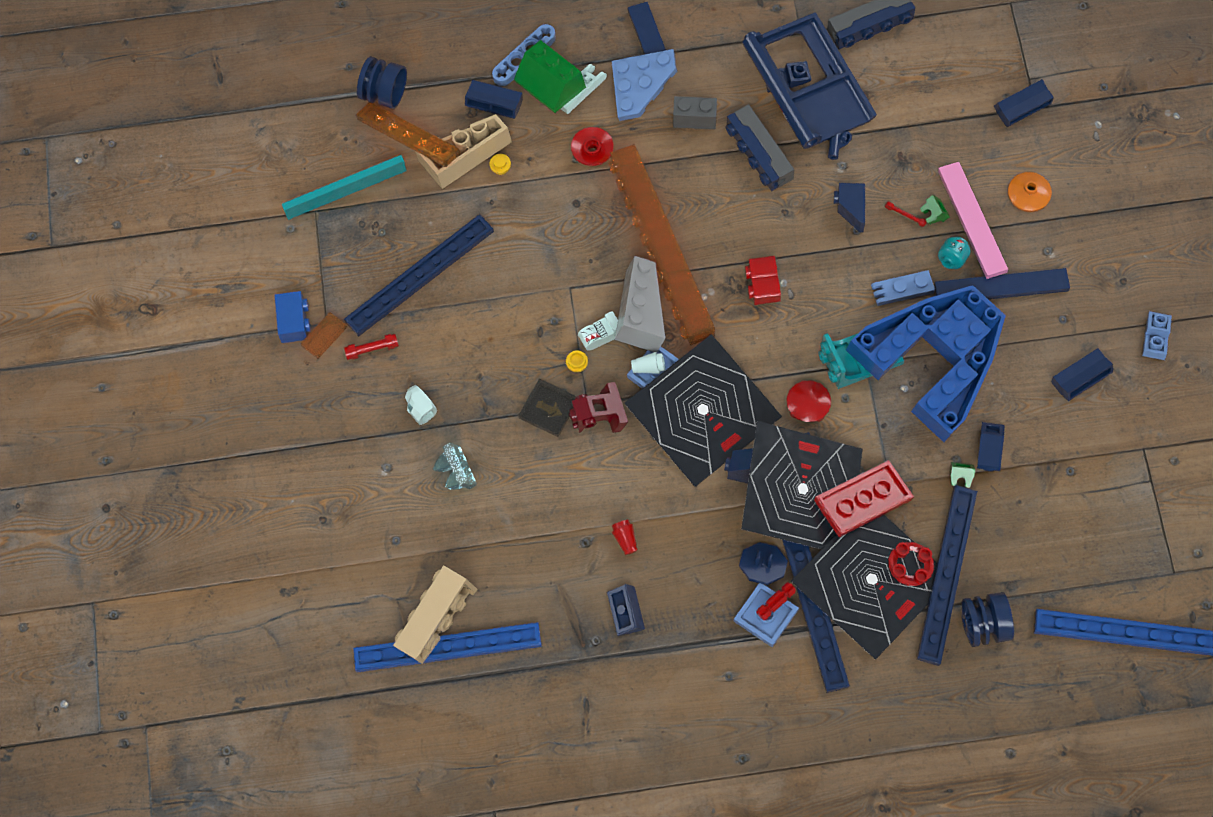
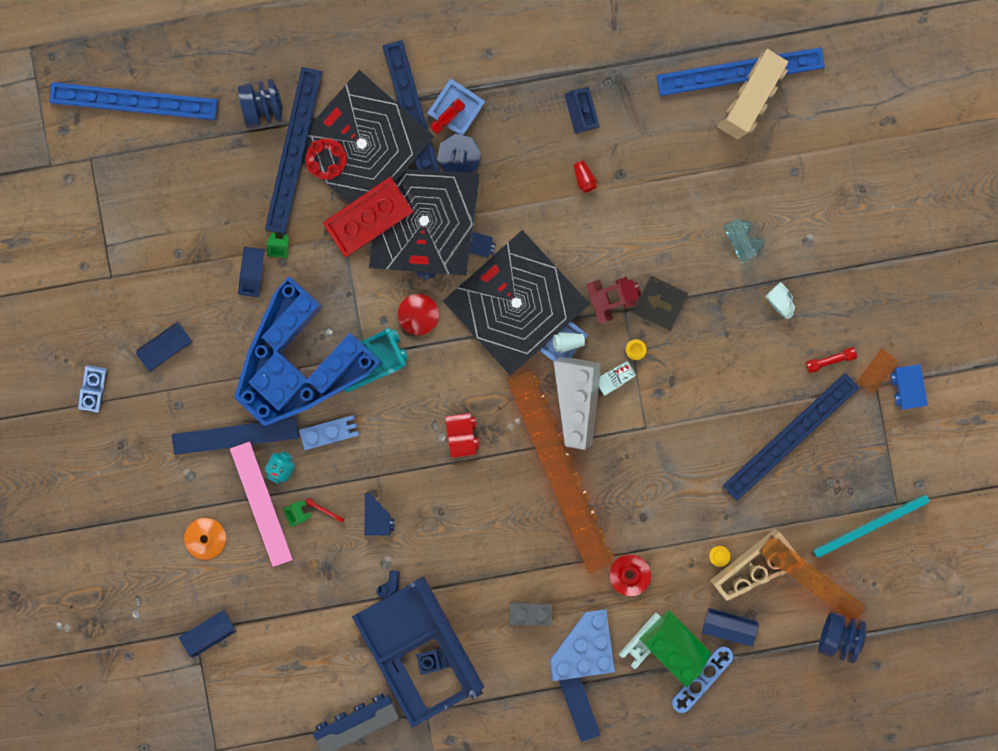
camera: 170 degrees right, 20 degrees up
(759, 147) = (466, 577): piece -> none

